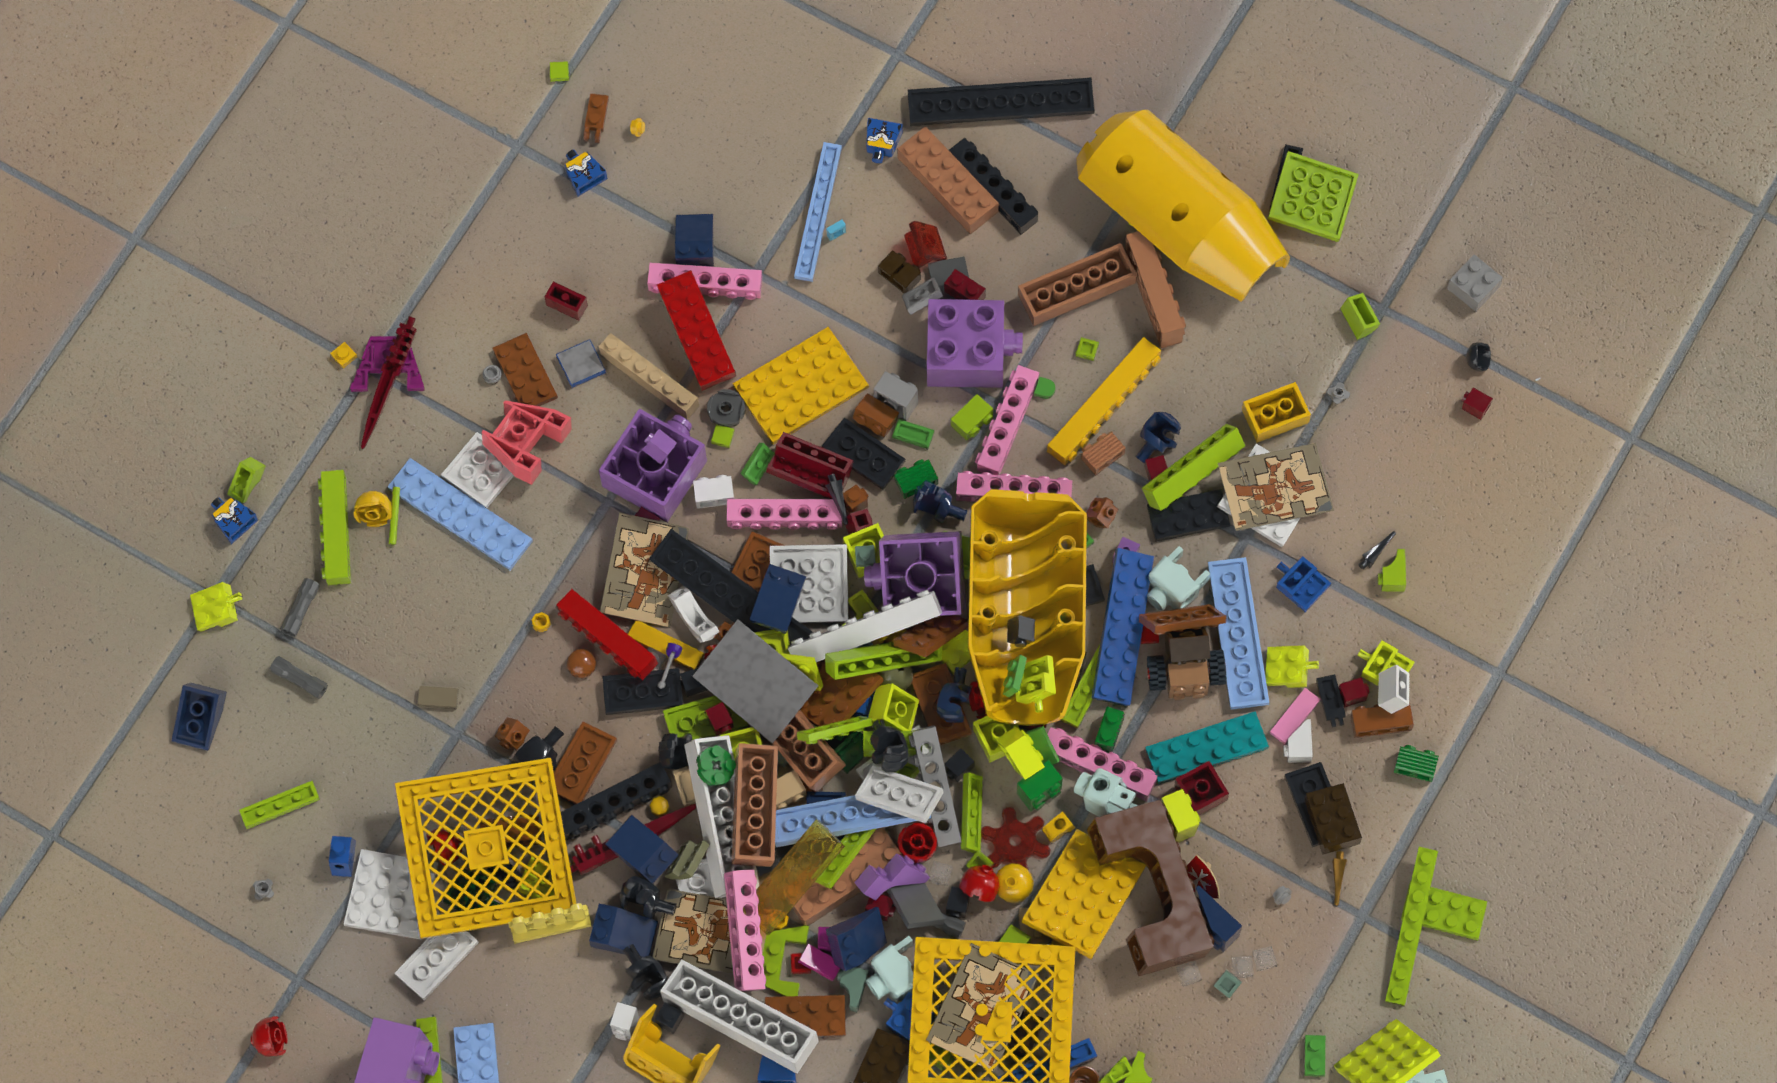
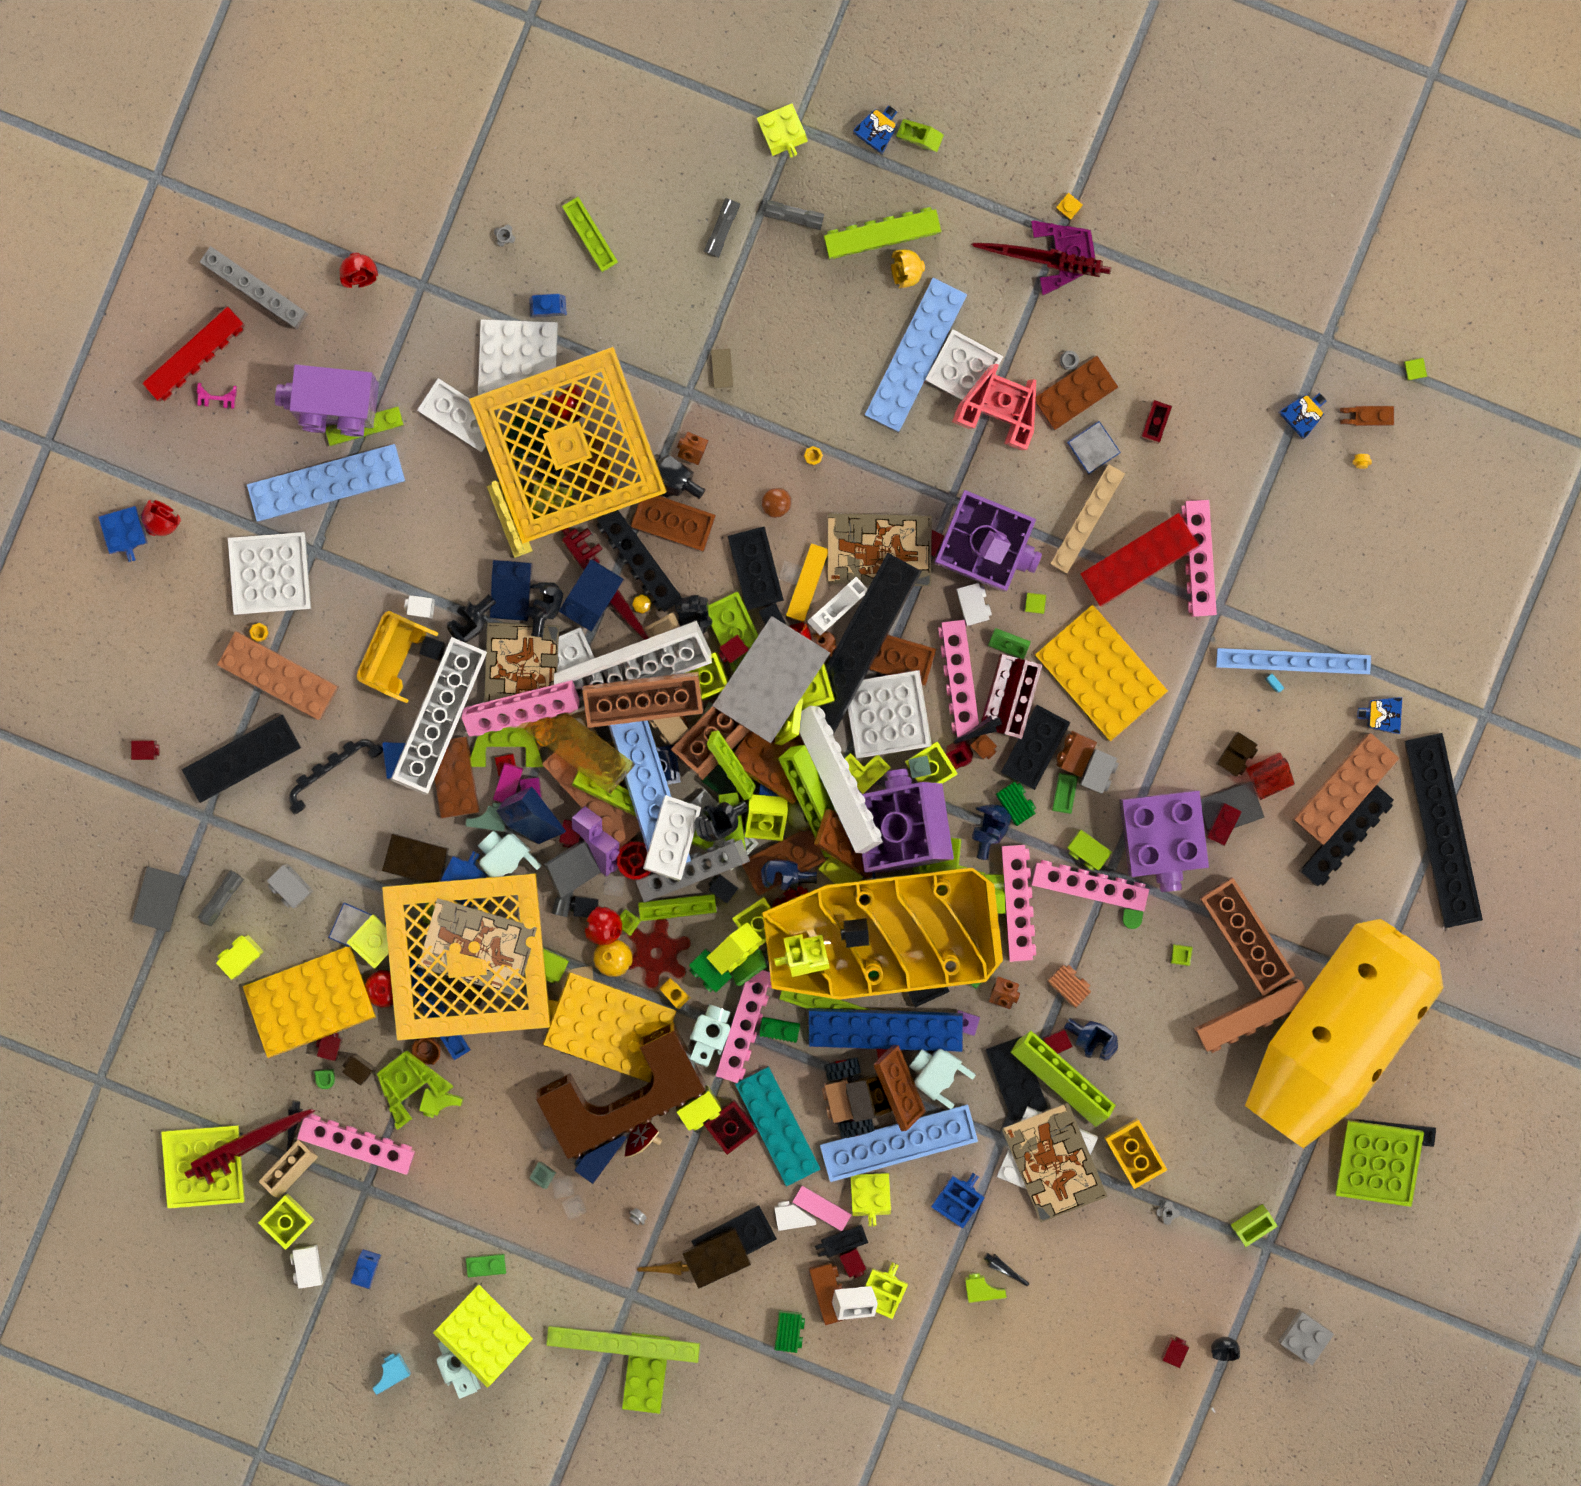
camera: 80 degrees right, 20 degrees up
(198, 715) = (668, 137): dark blue slope -> none
(394, 520) = (909, 290): lime bar -> none
(606, 634) = (806, 524): red brick -> none
(673, 651) = (797, 591): hinge -> none
(687, 860) = (584, 642): olive slope -> none
(694, 240) = (1245, 540): dark blue slope -> none
(722, 758) = (674, 665): green plate -> none
(729, 418) = (1073, 609): dark grey plate -> none
(777, 598) = (860, 687): dark blue slope -> none
(918, 297) = (1210, 782): light grey tile -> none
(1014, 677) = (807, 933): bright green plate -> none
(1104, 401) = (1126, 980): yellow brick -> none

